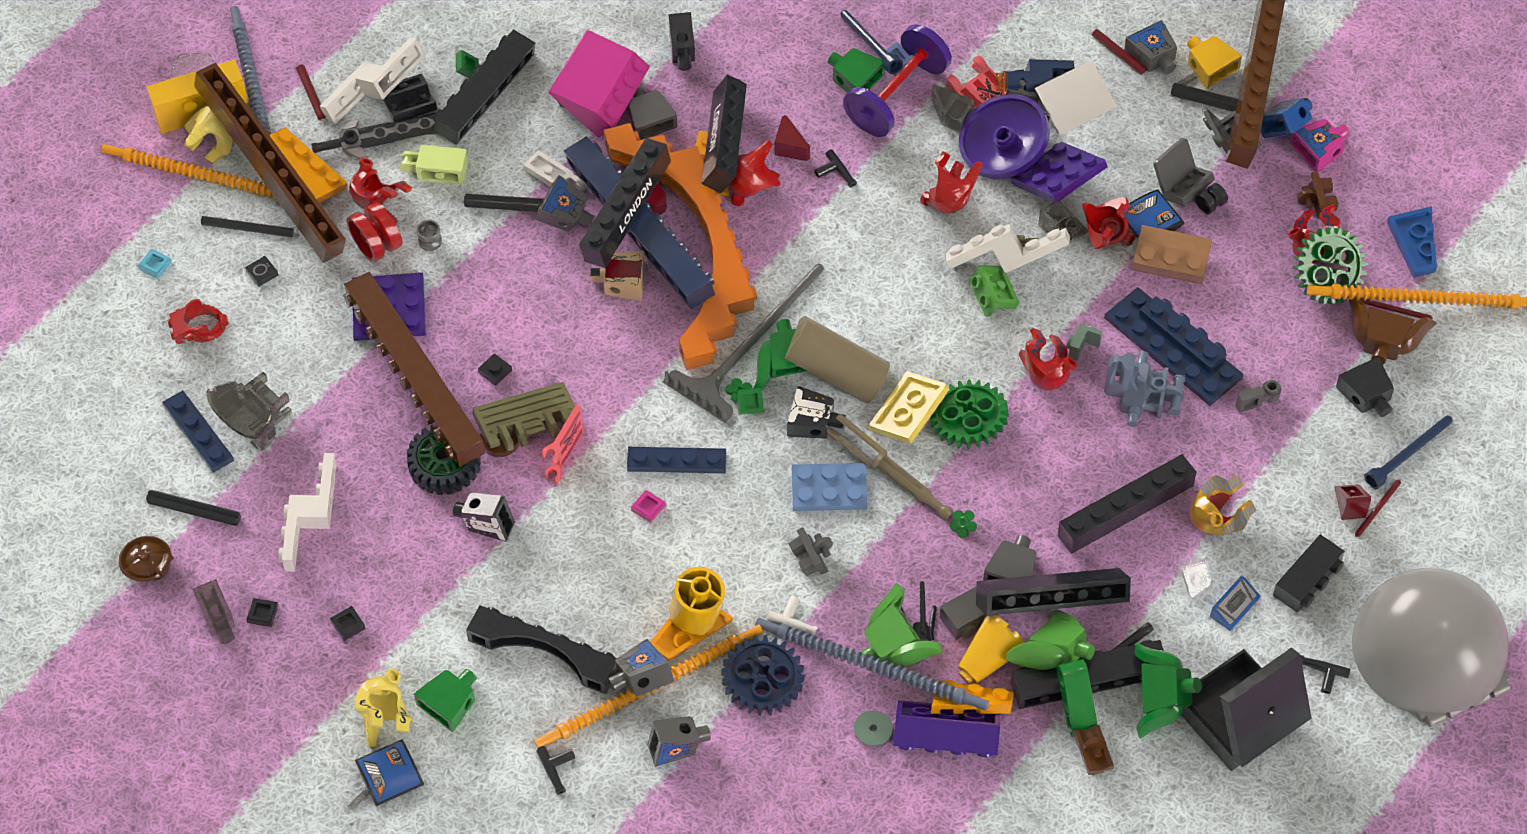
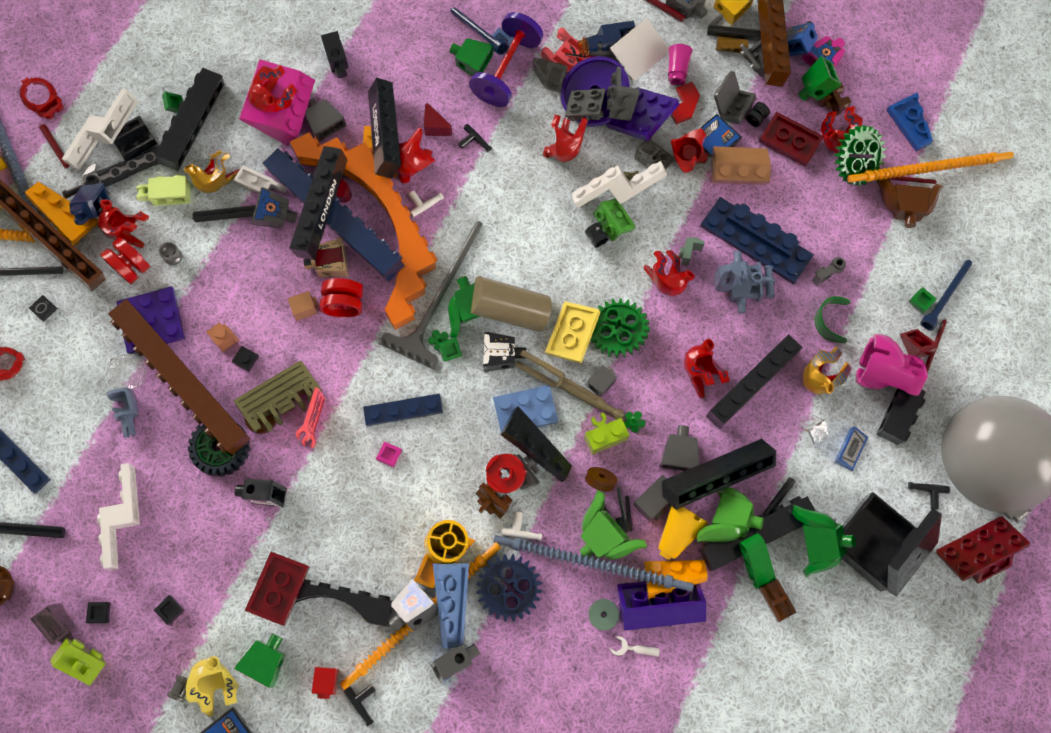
camera: 15 degrees left, 15 degrees up
(234, 651) = (78, 661): none -> lime brick
(250, 409) = (50, 438): clear smoke piece -> none
(310, 48) = (43, 110): none -> red piece
(343, 159) = (87, 202): none -> dark blue hinge
(343, 384) = (128, 412): none -> sand blue piece
(343, 708) = (179, 689): none -> dark grey bush
(347, 358) = (126, 371): none -> clear dish
(474, 337) = (222, 336): none -> nougat window
(484, 615) = (277, 588): none -> dark red plate
(494, 159) = (209, 179): none -> pearl gold piece
(517, 732) = (325, 682): none -> red brick
(579, 321) = (303, 305): none -> medium nougat brick
(582, 68) = (260, 93): none -> red piece
(628, 317) = (341, 298): none -> red wheel
(690, 666) = (451, 595): none -> medium blue wing
(751, 235) = (423, 206): none -> white piece
(762, 578) = (491, 502): none -> reddish brown hips
(796, 554) = (505, 462): none -> red plate
(829, 518) = (532, 442): none -> black wing
(904, 576) = (601, 479): none -> reddish brown piece
(905, 774) = (637, 649): none -> white piece
(923, 530) = (605, 434): none -> lime brick
(932, 469) = (601, 380): none -> dark grey brick
(966, 302) = (597, 234): none -> black wheel
(987, 148) = (585, 103): none -> dark grey hinge
(1031, 147) = (621, 98): none -> dark grey bracket
(1062, 473) = (700, 365): none -> red piece
(1119, 179) = (689, 96): none -> red tile
(1122, 121) = (678, 63): none -> dark pink plant
(1194, 110) = (730, 44): none -> pearl gold bar
(1244, 430) = (820, 325): none -> green piece
(1248, 235) = (791, 139): none -> dark red plate
(1297, 509) = (889, 366): none -> dark pink piece
(1300, 168) = (819, 80): none -> green torso
(1367, 387) = (907, 248): black torso -> none
(1373, 451) = (922, 300): none -> green plate
(1376, 749) = (984, 550): none -> dark red bracket

